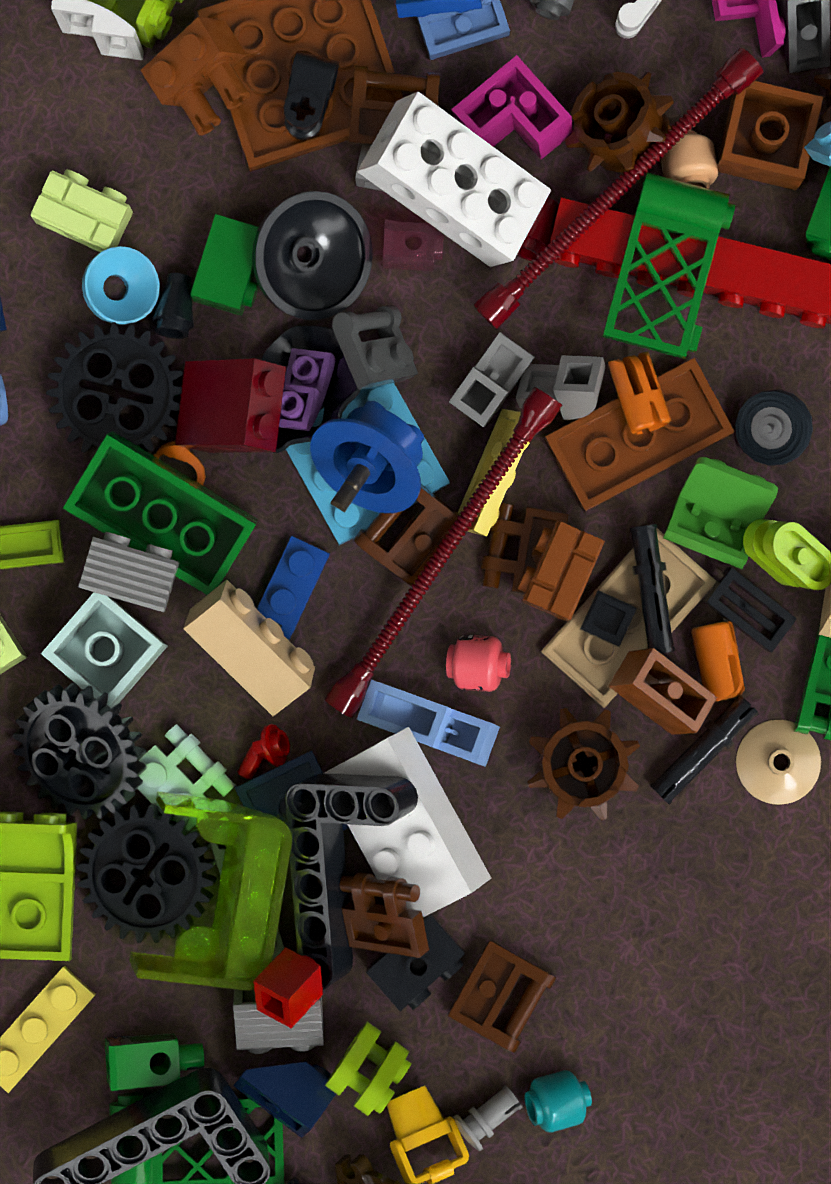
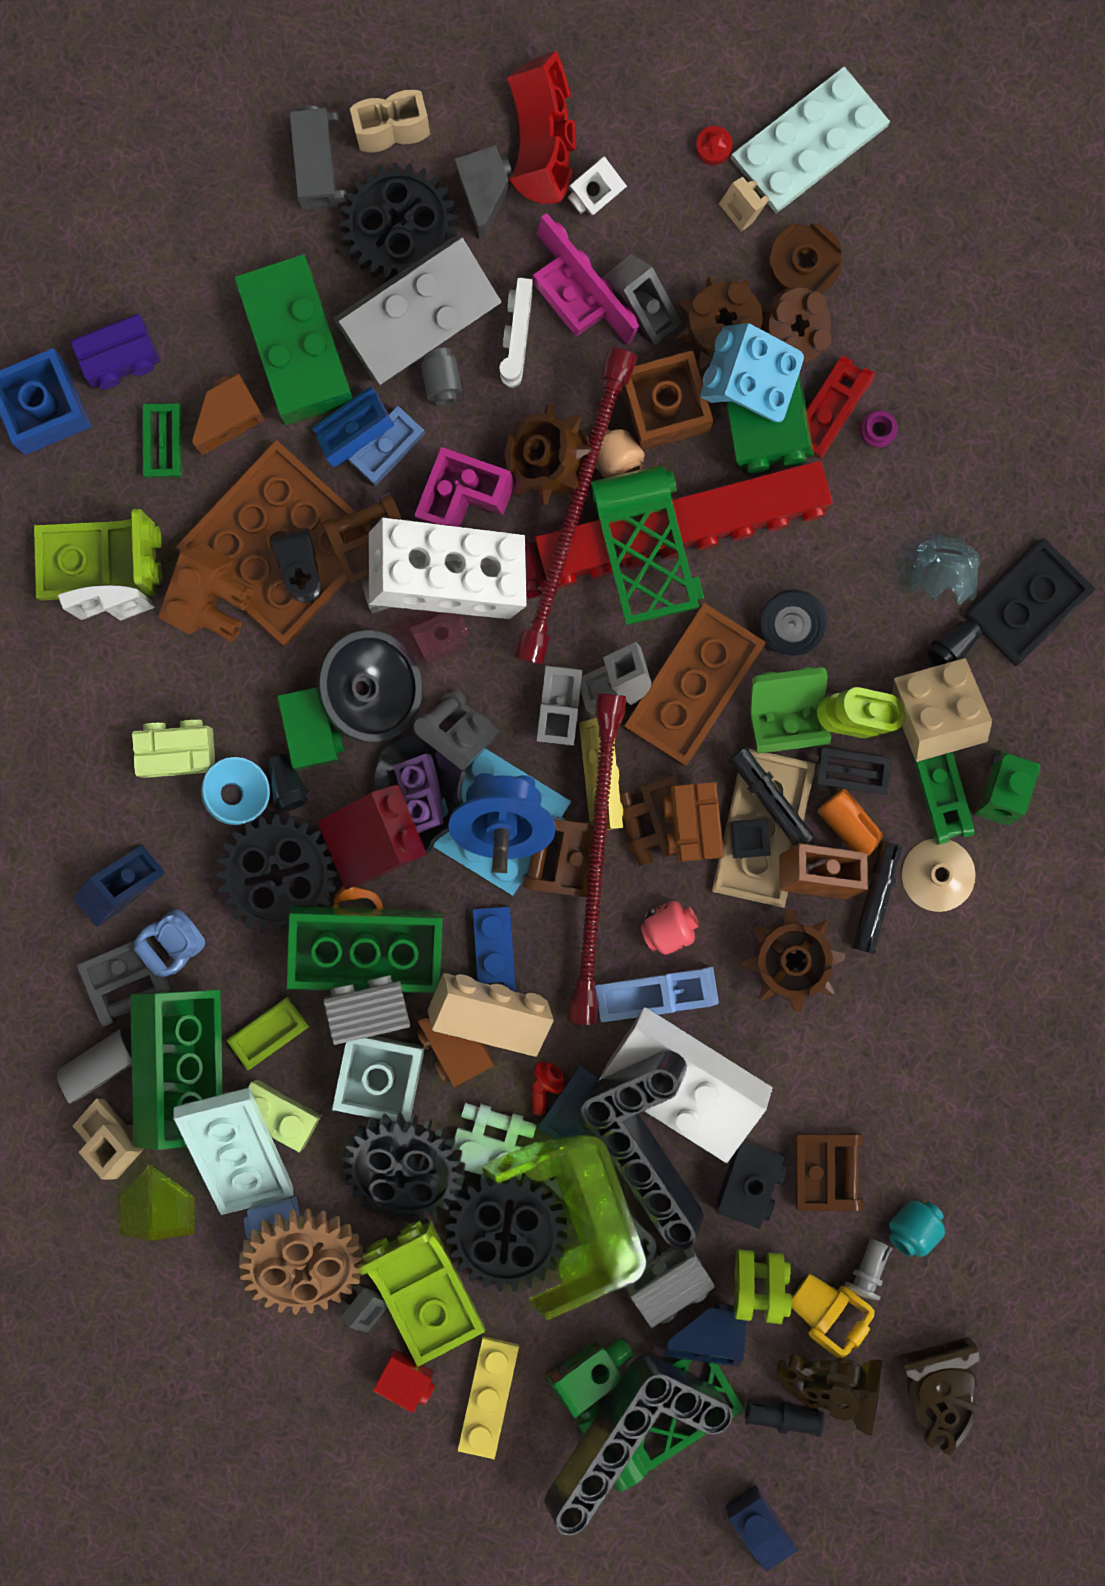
camera: 25 degrees left, 0 degrees up
(195, 673) = (457, 1057): none -> dark orange slope
(288, 987) = (666, 1260): red brick -> none
(383, 927) = (714, 1170): reddish brown plate -> none
(639, 393) = (678, 653): orange arm -> none

